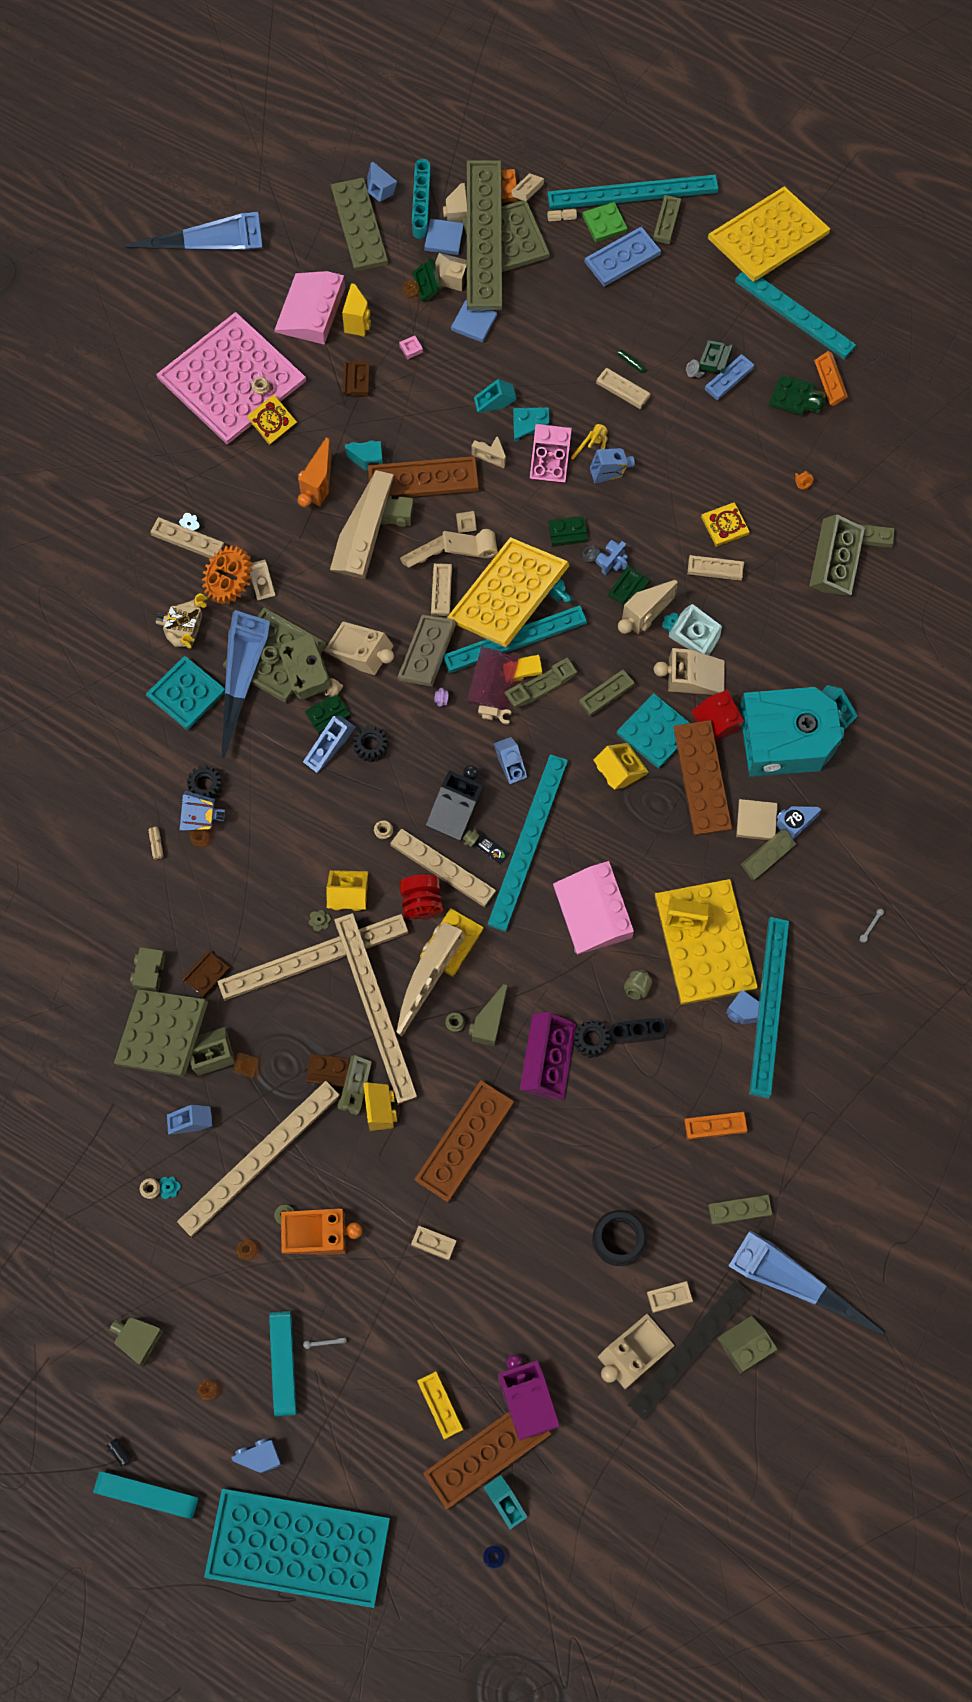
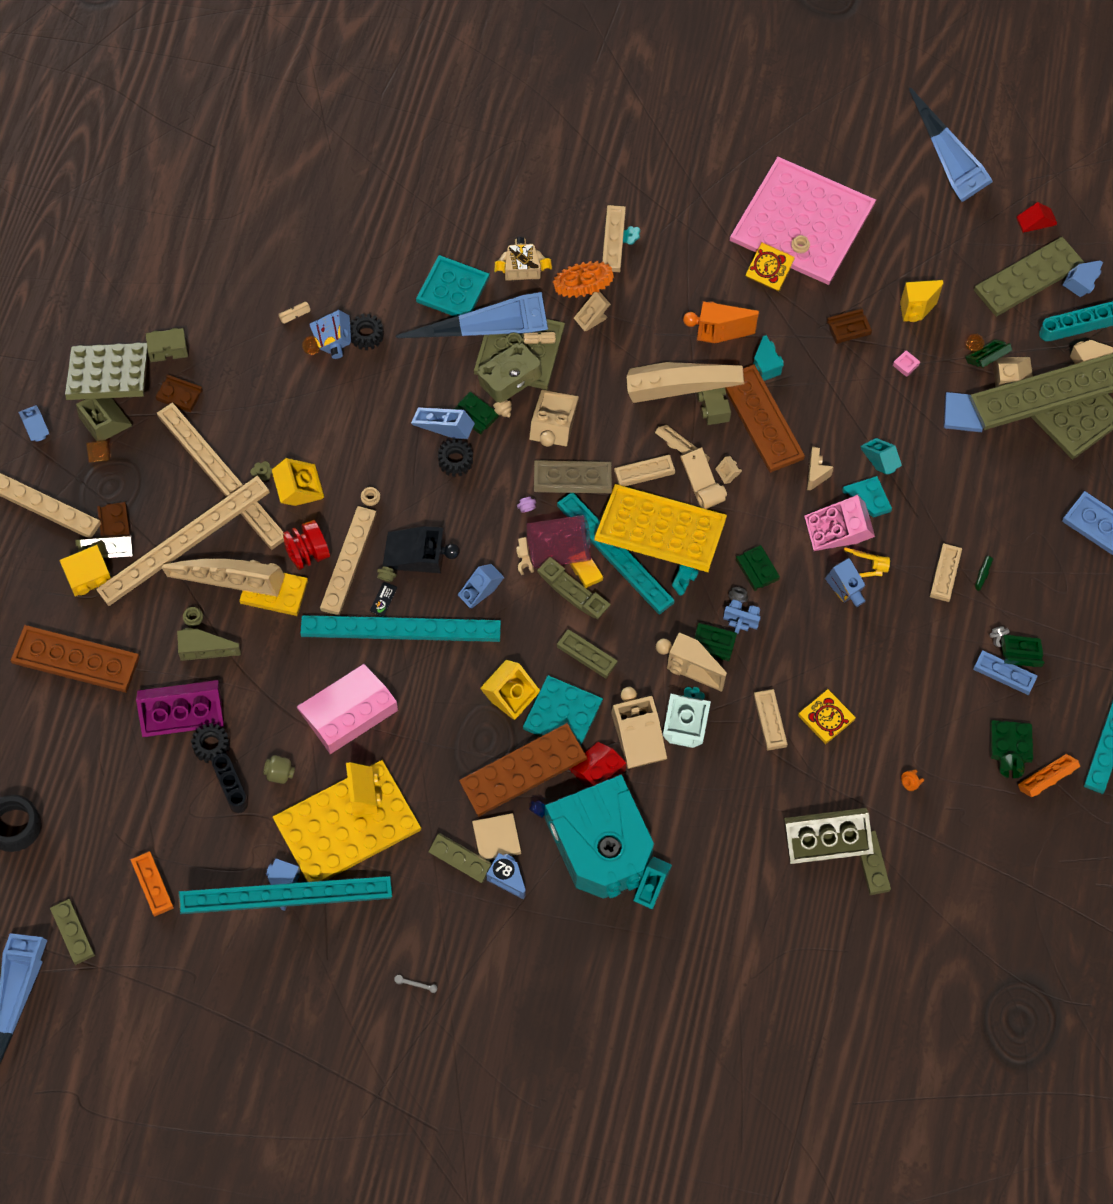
camera: 70 degrees right, 5 degrees down
(275, 628) = (544, 338): none -> tan piece
(303, 198) = (1036, 218): none -> red slope
(311, 306) = (913, 262): bright pink slope -> none
(444, 237) = (1050, 354): medium blue tile -> none
(741, 776) = (538, 808): none -> clear blue plate

